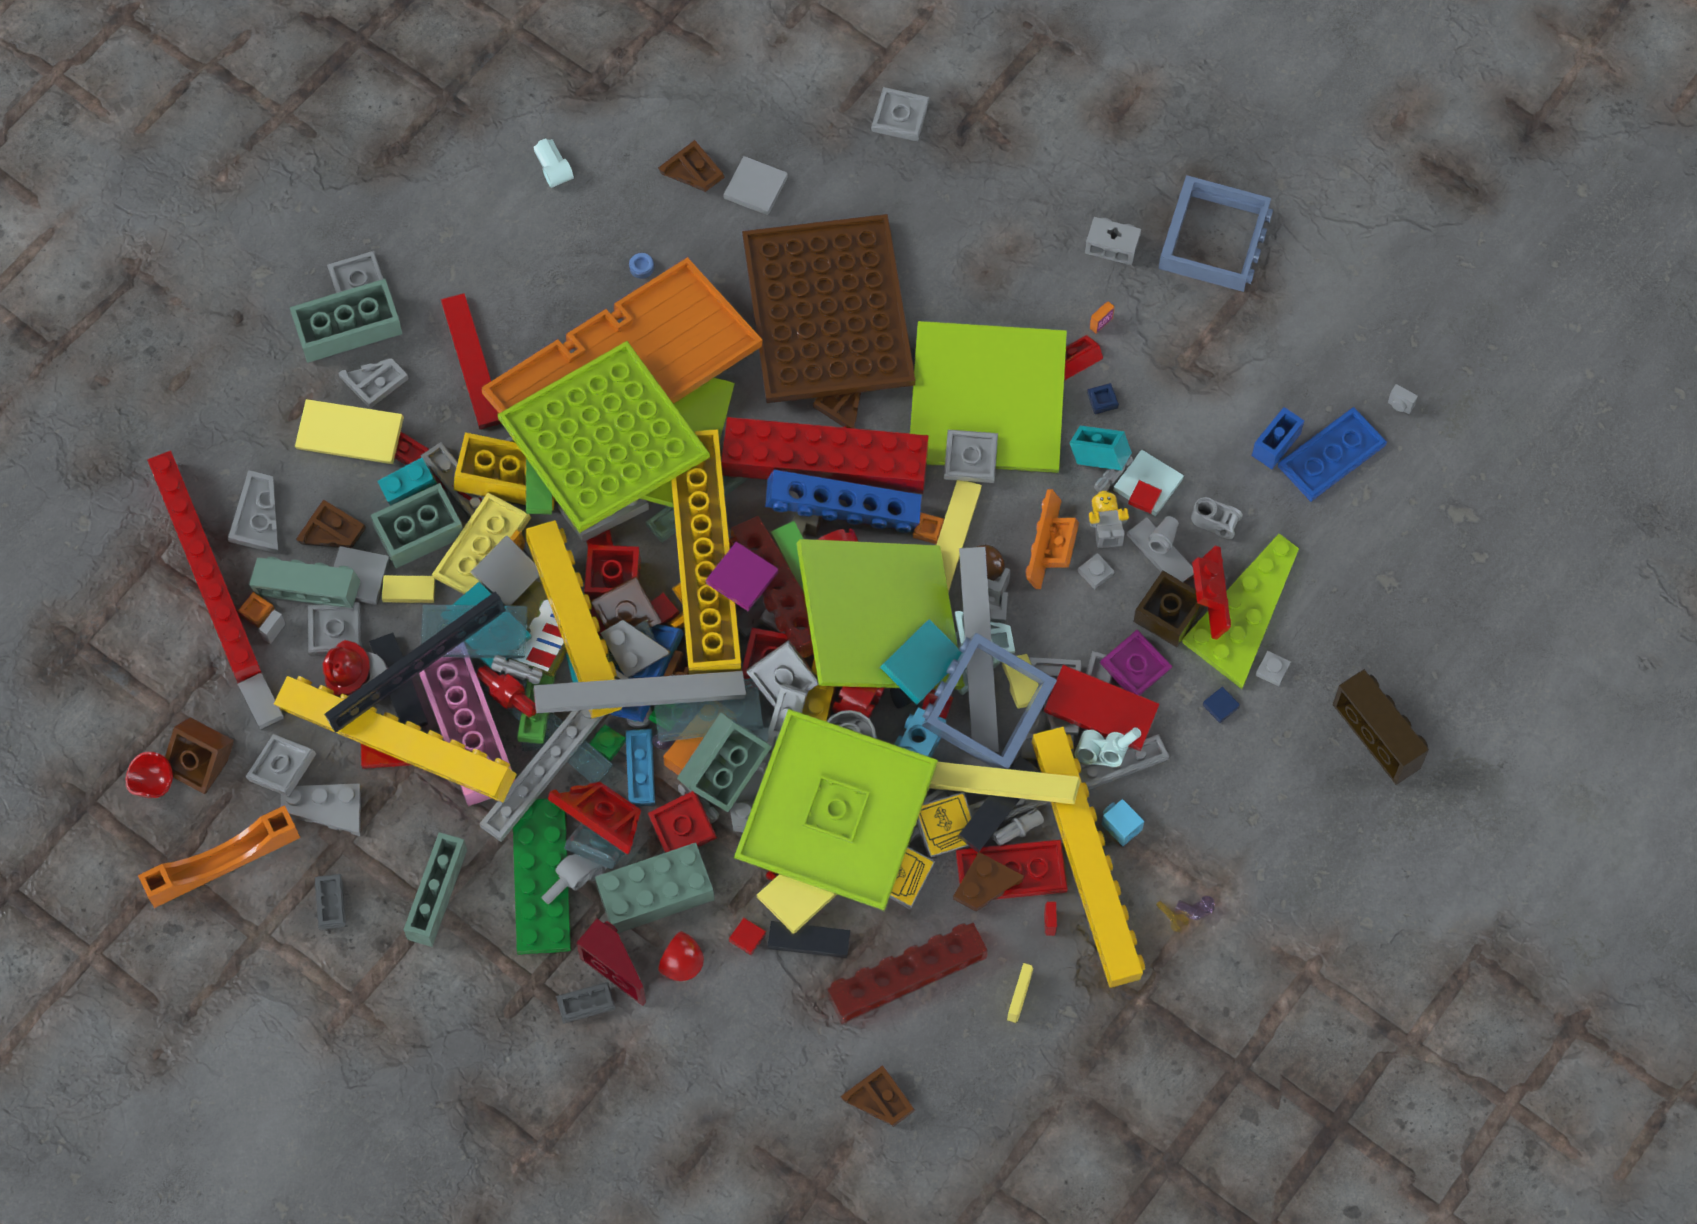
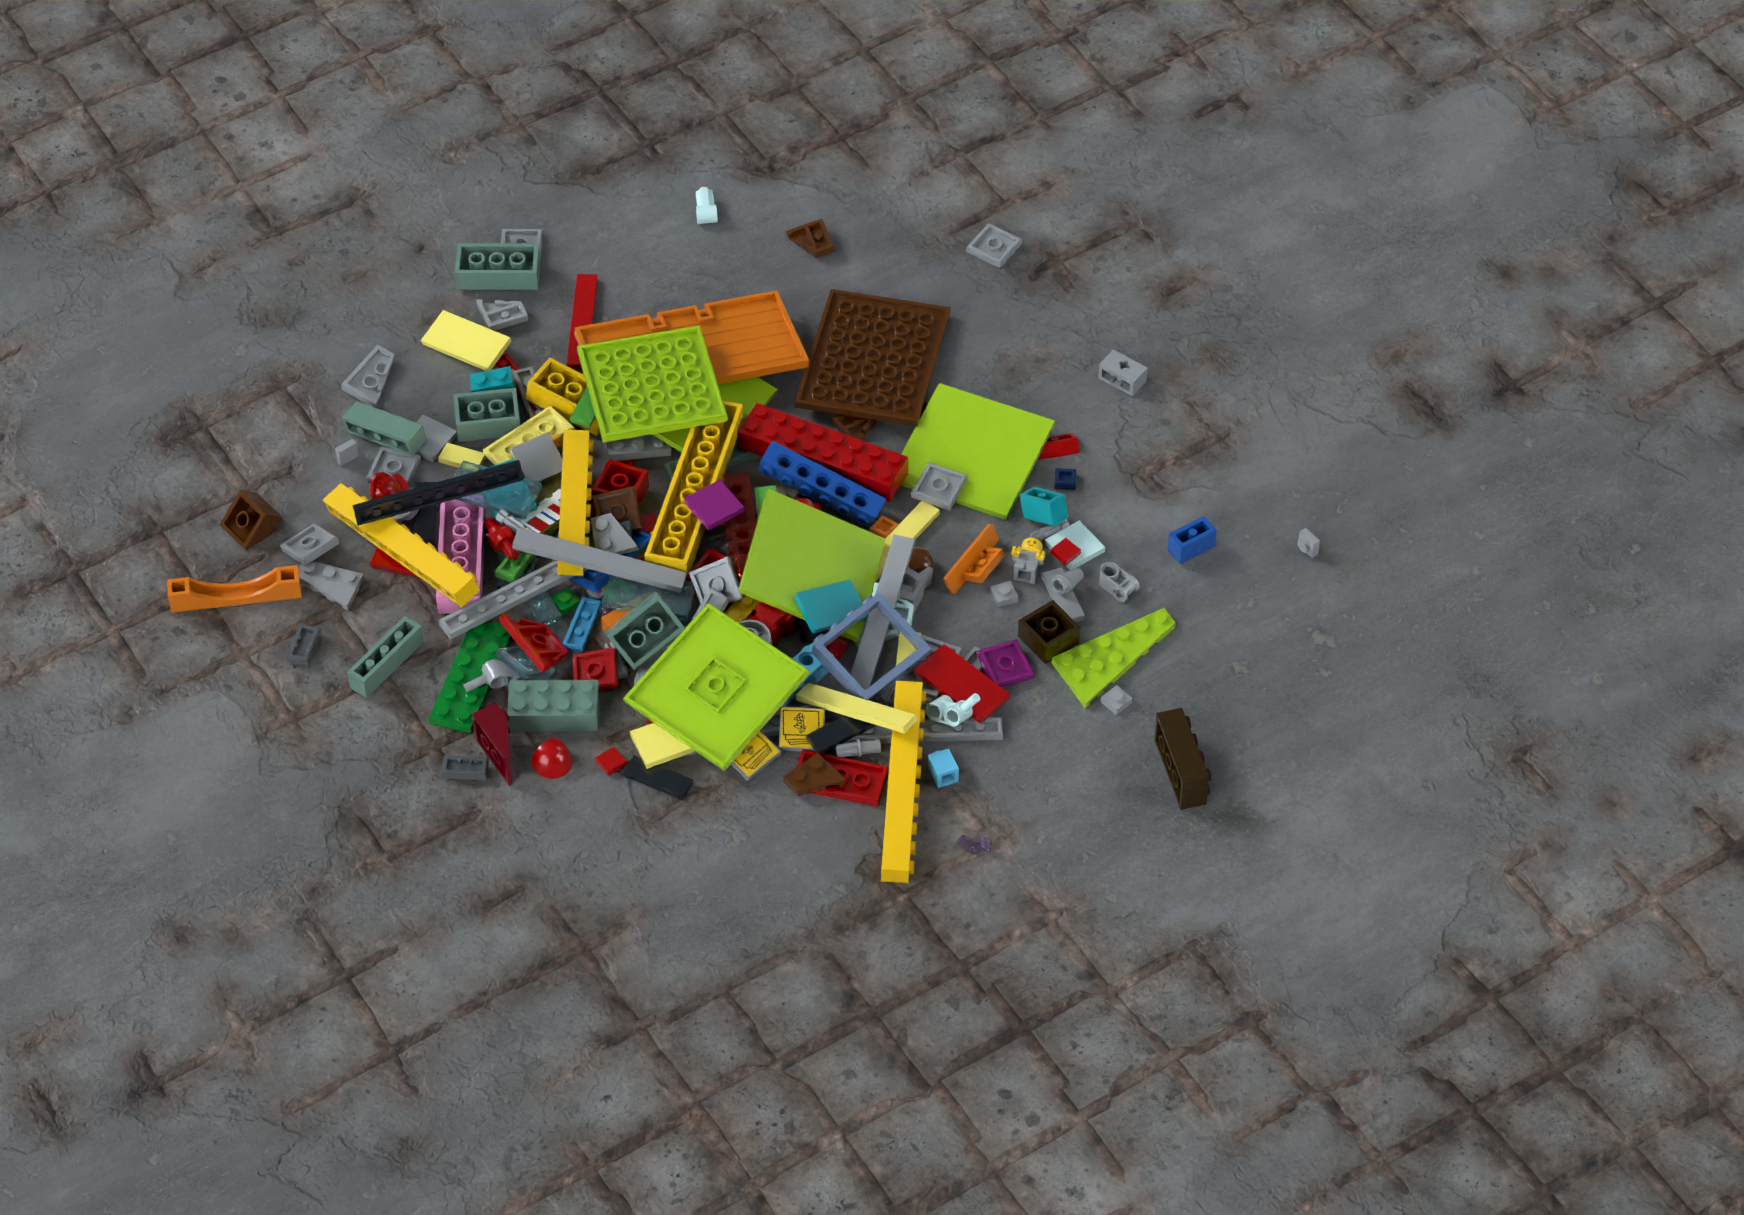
camera: 20 degrees right, 15 degrees down
(149, 775) = (209, 522): red helmet -> none
(204, 567) = (314, 400): red brick -> none
(256, 610) = (338, 437): orange tile -> none
(260, 701) = (314, 494): light grey tile -> none
(331, 528) = (422, 400): reddish brown wing -> none
(641, 265) = (742, 290): medium blue tile -> none
(755, 185) = (857, 263): light grey tile -> none
(850, 1007) = (740, 820): clear red brick -> none
(880, 1098) = (661, 898): reddish brown wing -> none
(1020, 993) = (806, 860): light yellow tile -> none
(1050, 918) = (854, 816): red tile -> none
(1102, 317) = (1089, 422): orange tile -> none
(1172, 916) = (954, 846): clear yellow hand -> none
(1212, 591) = (1086, 623): red bracket -> none
(1221, 704) = (1062, 712): dark blue tile -> none
(1226, 196) = (1224, 364): sand blue window -> none
(1332, 454) = (1234, 567): blue tile -> none

